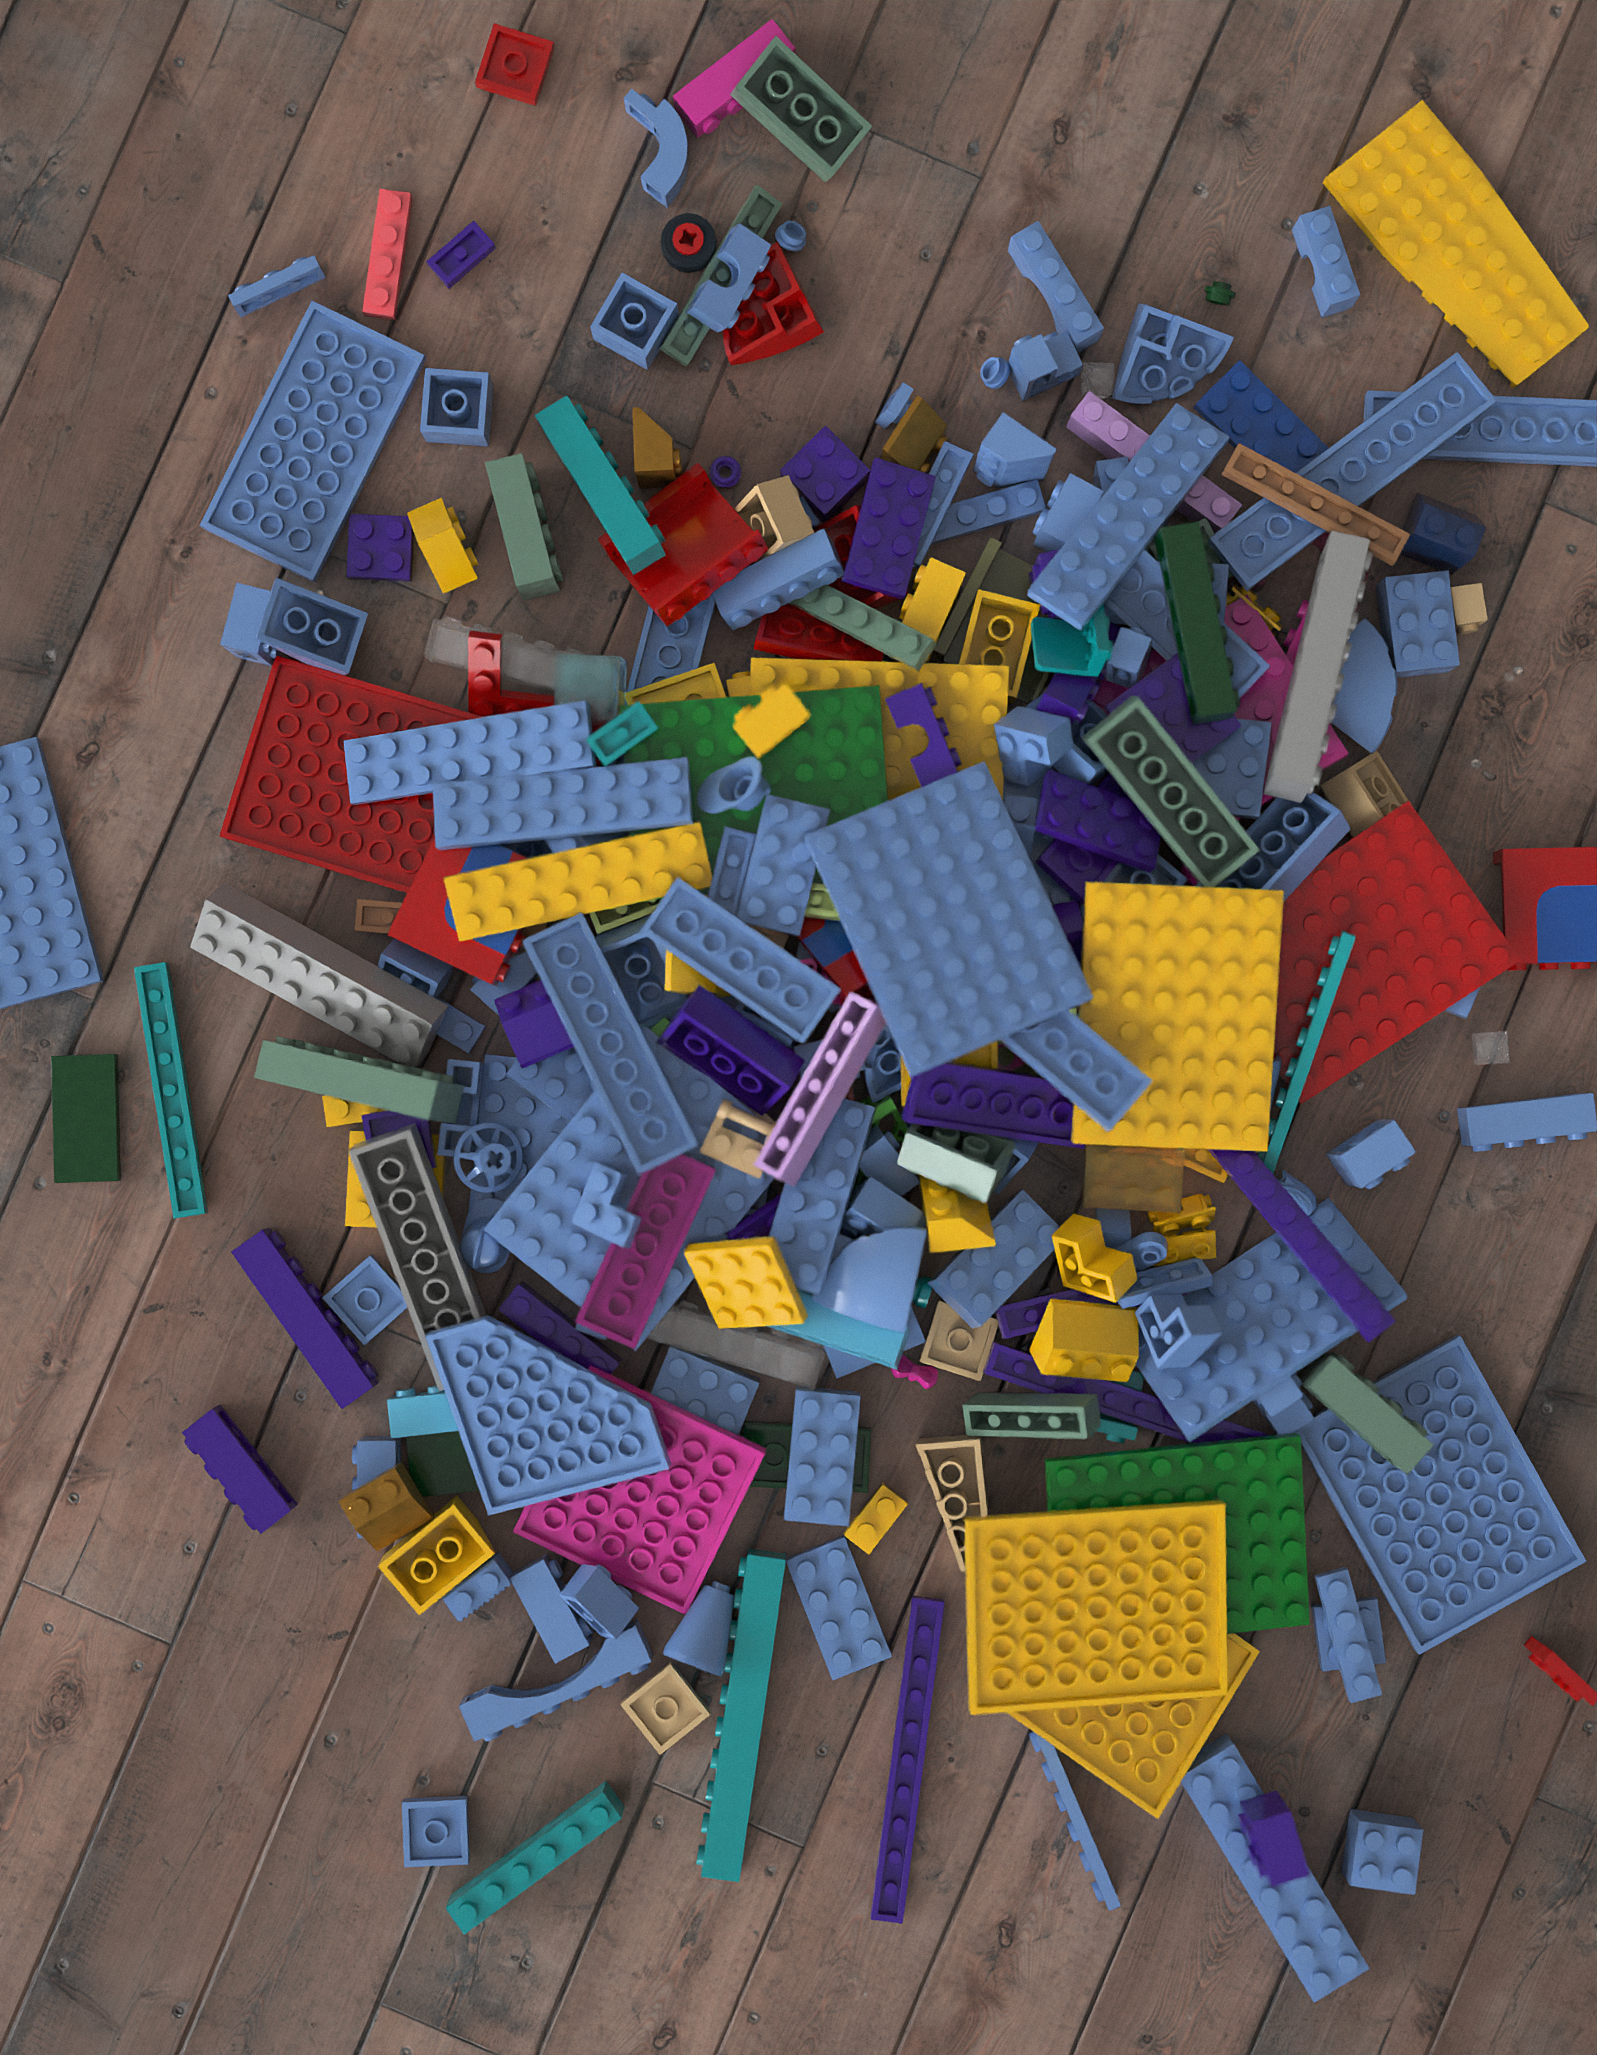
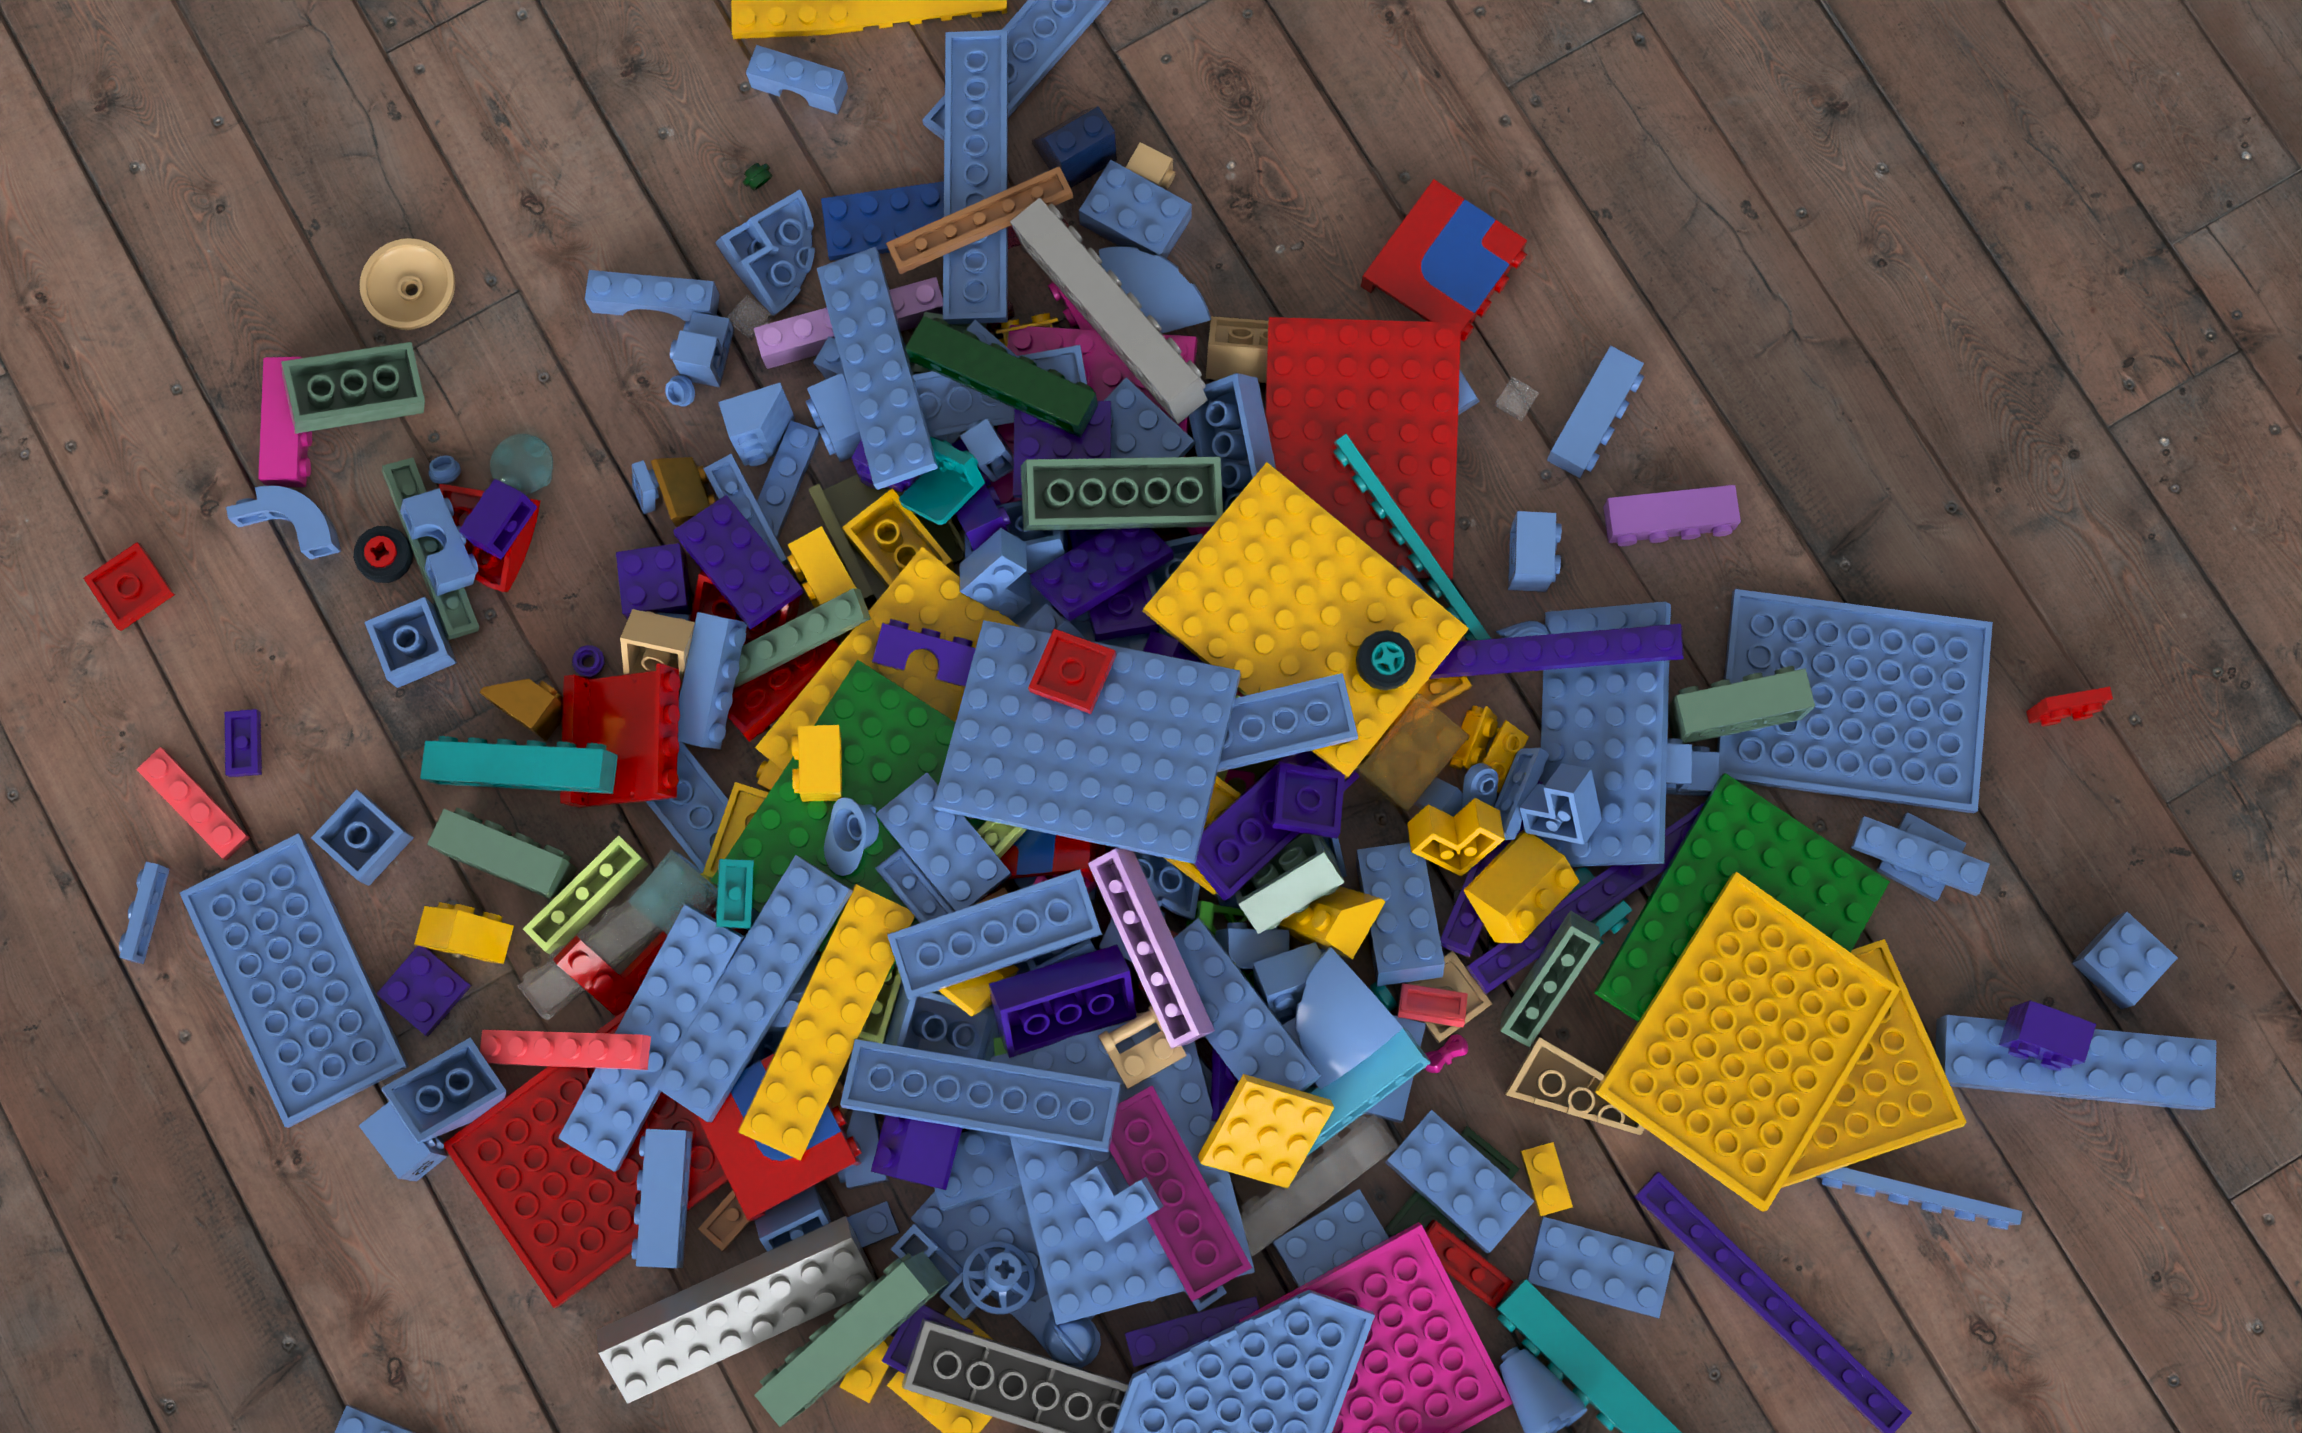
camera: 50 degrees left, 10 degrees down
(357, 857) = (663, 1198): none -> medium blue brick
(411, 694) = (566, 1049): none -> coral plate
(541, 615) = (585, 895): none -> yellowish green brick
(764, 1506) = (1468, 1266): none -> red tile
(781, 311) = (497, 518): none -> dark purple brick
(842, 294) = (522, 463): none -> clear light blue dish
(920, 66) = (397, 270): none -> tan dish
(944, 1336) = (1432, 1005): none -> coral tile
(993, 865) = (1072, 671): none -> red plate
(1031, 1126) = (1308, 800): none -> dark purple plate
(1199, 1113) = (1396, 654): none -> black wheel
(1485, 1242) = (1671, 515): none -> medium lavender brick

